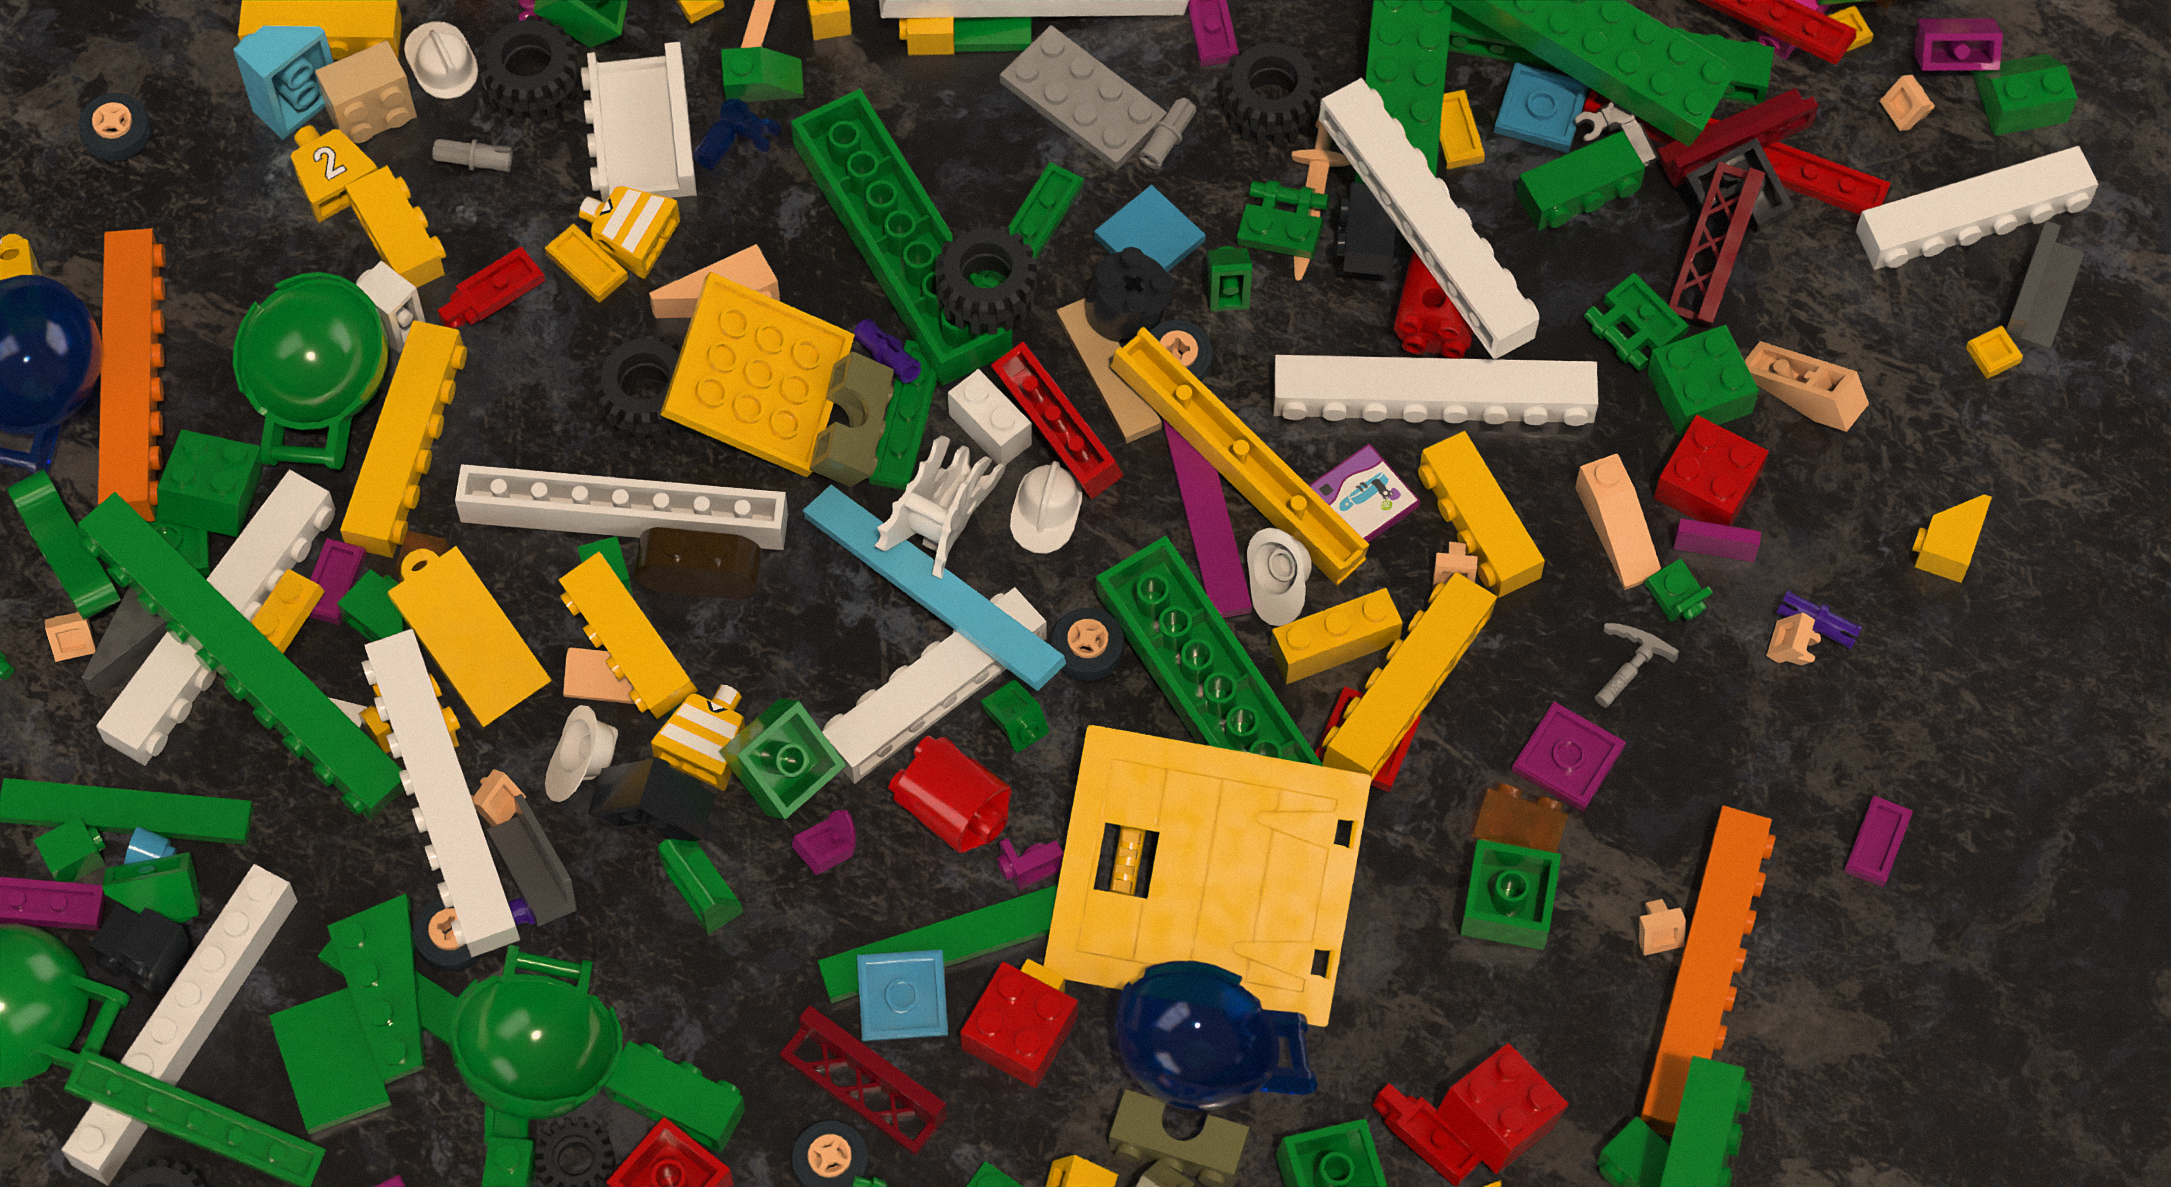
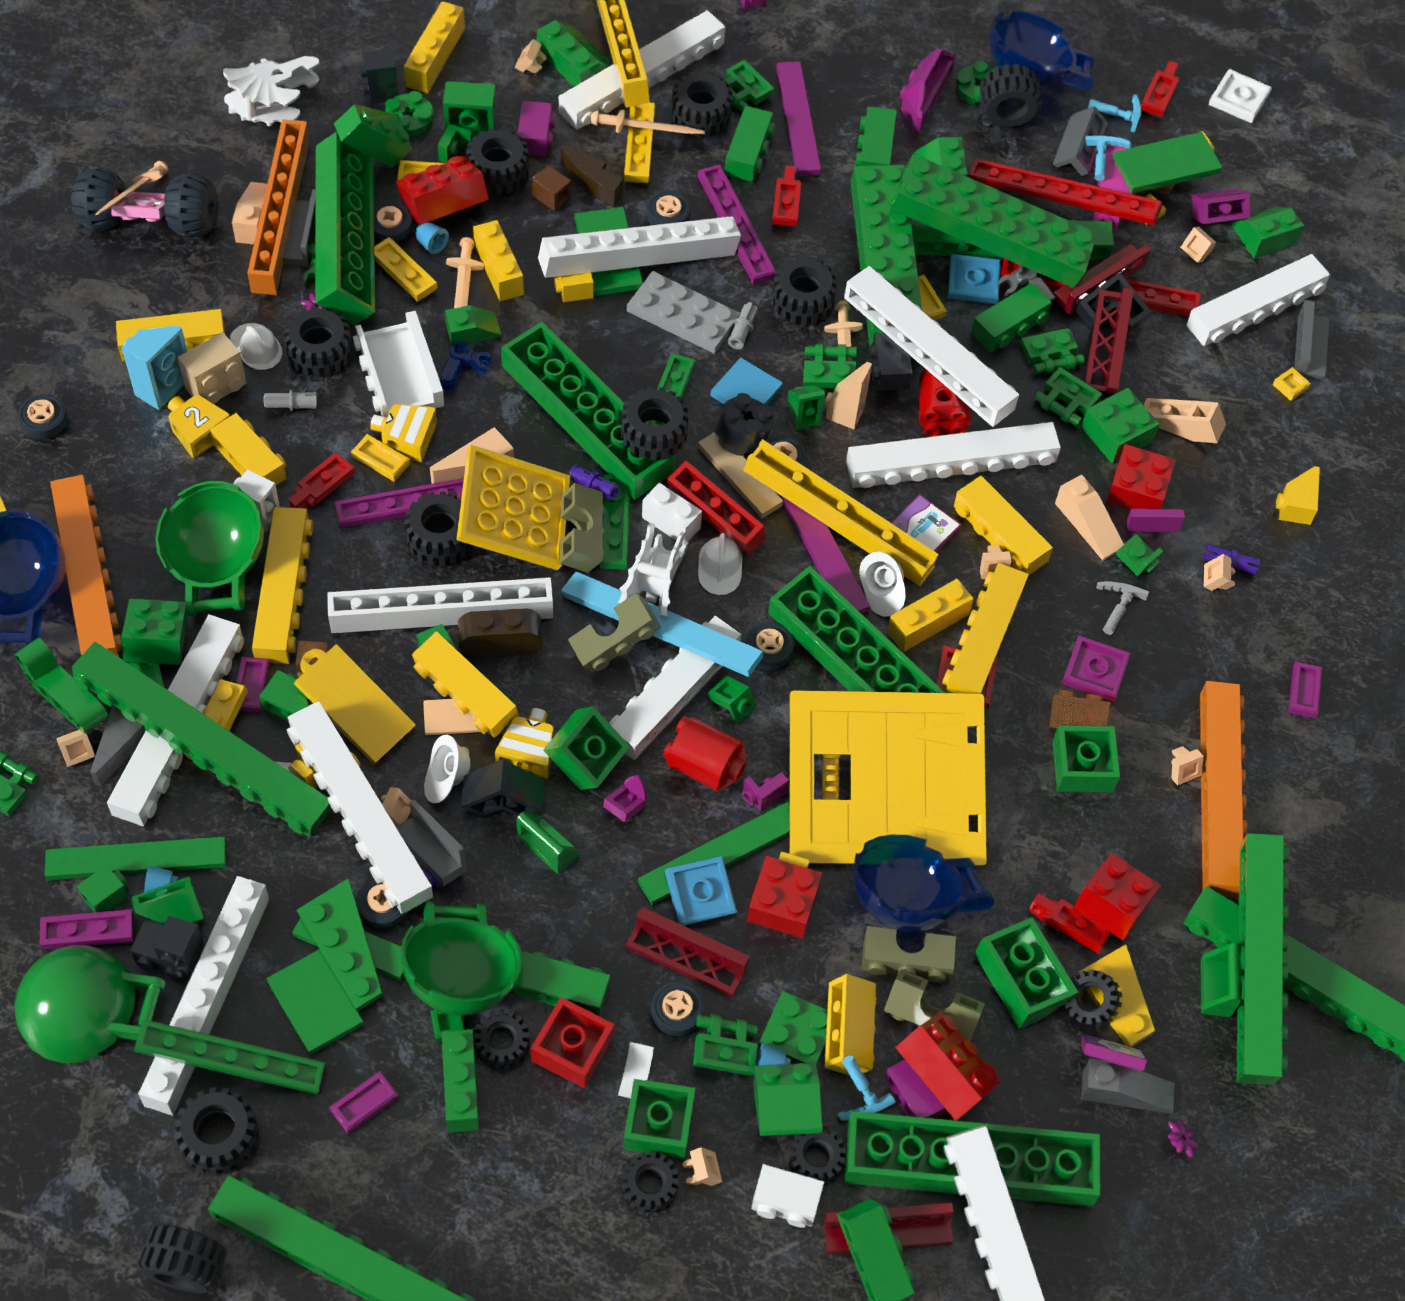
camera: 15 degrees left, 5 degrees down
(585, 337) = (389, 504): none -> magenta tile
(891, 583) = (635, 624): none -> olive arch
(1295, 278) = (849, 398): none -> light nougat slope
(1632, 235) = (1051, 345): none -> green plate

